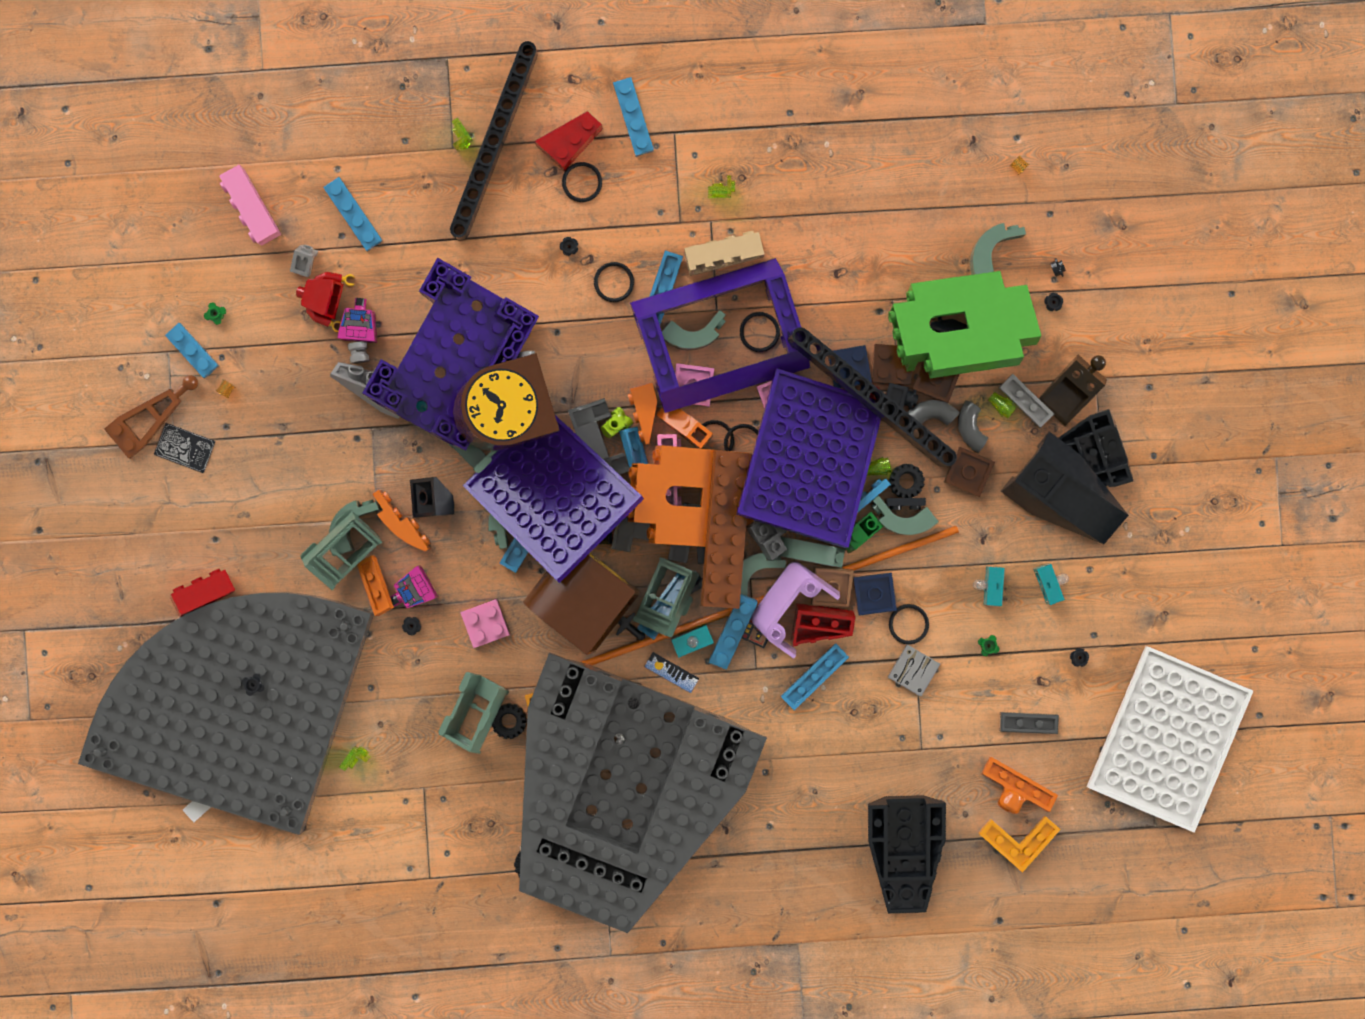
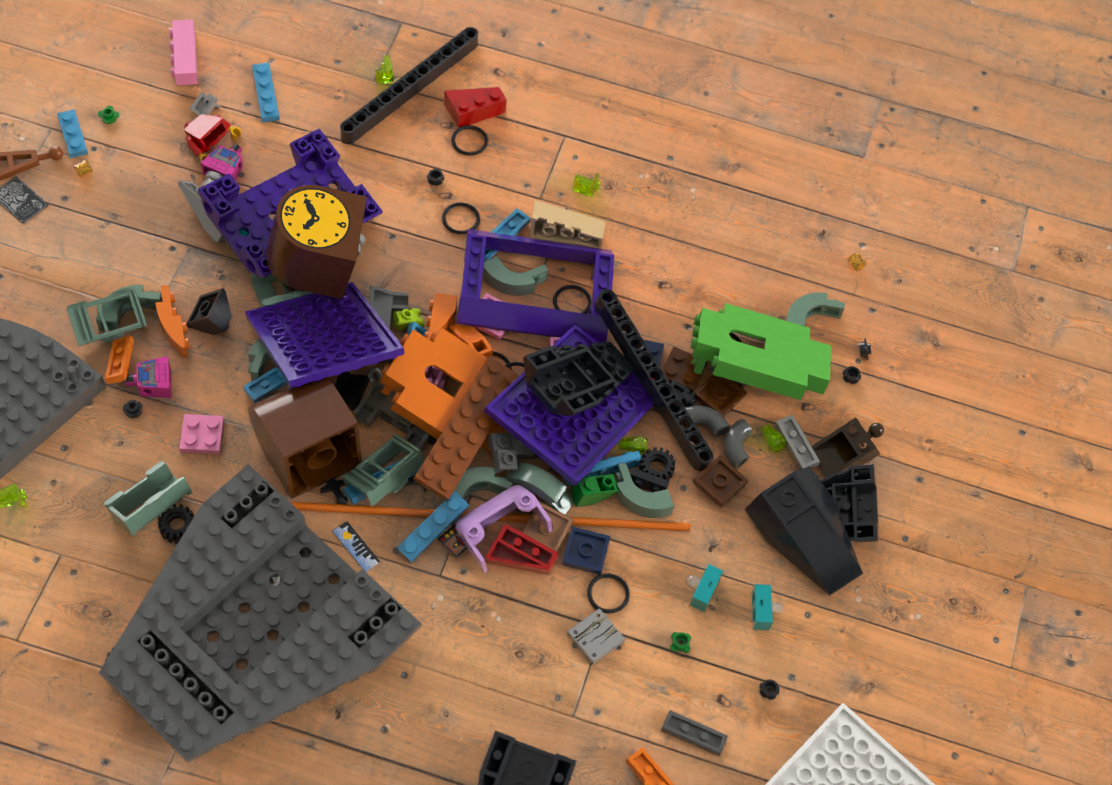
camera: 10 degrees right, 30 degrees down
(633, 116) = (535, 112): dark azure plate -> none
(692, 641) = (389, 523): teal piece -> none
(807, 438) = (575, 377): none -> black wedge
(814, 676) = (494, 601): dark azure plate -> none

